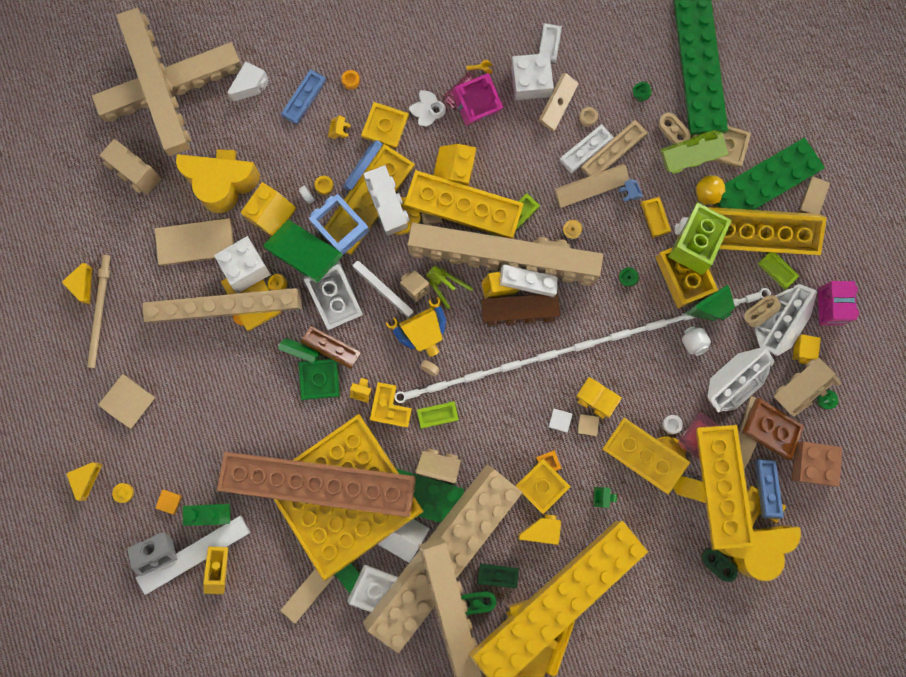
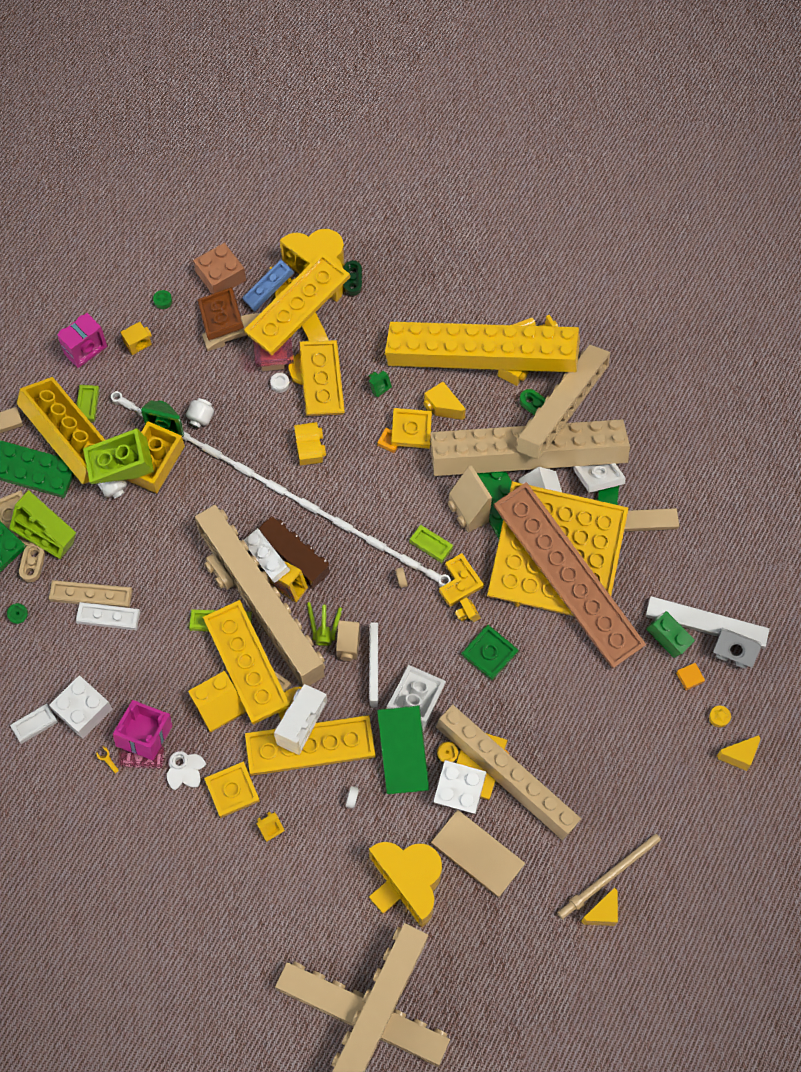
camera: 130 degrees left, 15 degrees down
(126, 401) = (653, 780): tan slope -> none
(130, 167) = (469, 968): tan wedge -> none
(215, 570) = (699, 592): yellow slope -> none
(248, 82) = (297, 941): white slope -> none
(268, 209) = (395, 816): yellow slope -> none
(298, 350) = (483, 684): green tile -> none
(303, 97) = (267, 884): medium blue tile -> none
(323, 185) = (330, 794): yellow tile -> none
(330, 347) = (457, 664): tile -> none
(350, 79) = (215, 859): light orange tile -> none
(350, 239) = (354, 720): light blue window -> none
(362, 165) = (285, 774): medium blue tile -> none
(422, 329) = (377, 605): yellow torso -> none
(498, 575) = (503, 406): dark green plate -> none
(558, 102) = (85, 668): tan tile -> none
(560, 420) = (350, 457): white tile -> none
(572, 229) = (189, 569): yellow tile -> none
(588, 116) = (77, 637): tan tile -> none
(588, 425) = (335, 436): tan tile -> none
(591, 185) = (138, 583): tan tile -> none
(629, 277) = (191, 498): green tile -> none
(633, 189) = (114, 551): medium blue tile -> none
(655, 217) = (121, 519): yellow tile -> none
(710, 190) = (63, 495): yellow hair -> none
(739, 379) = (203, 363): white wedge -> none
(762, 311) = (133, 387): tan plate -> none
(785, 326) = (127, 368): white wedge -> none
(806, 387) = (168, 314): tan wedge -> none

